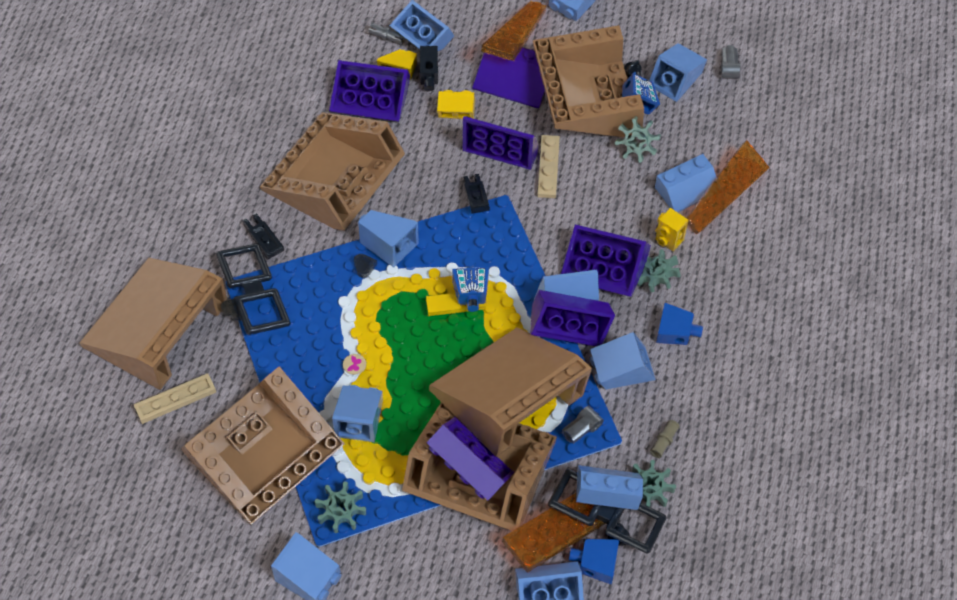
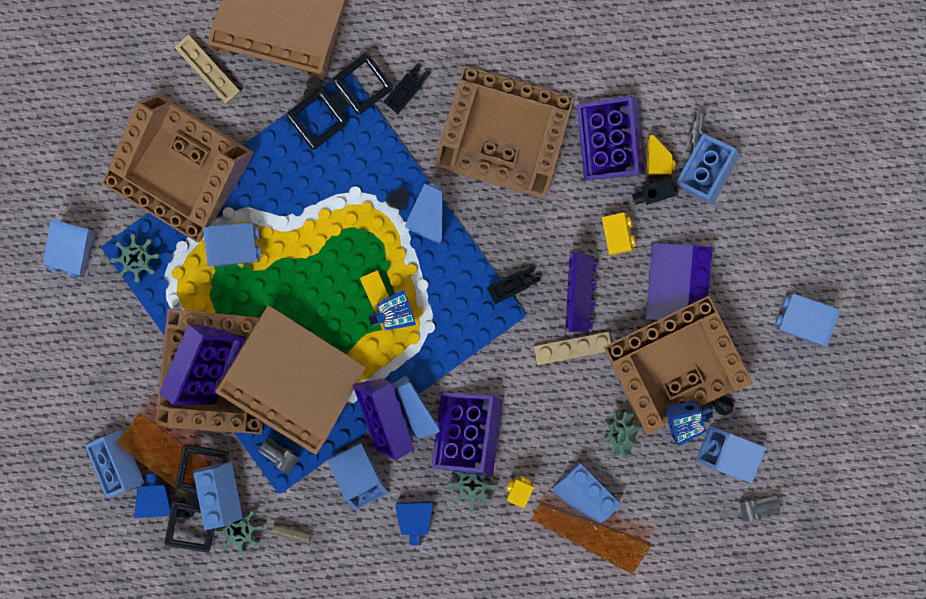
camera: 80 degrees right, 30 degrees up
(354, 364) = (288, 224): tan sticker -> none
(514, 34) = (716, 269): clear orange wing -> none

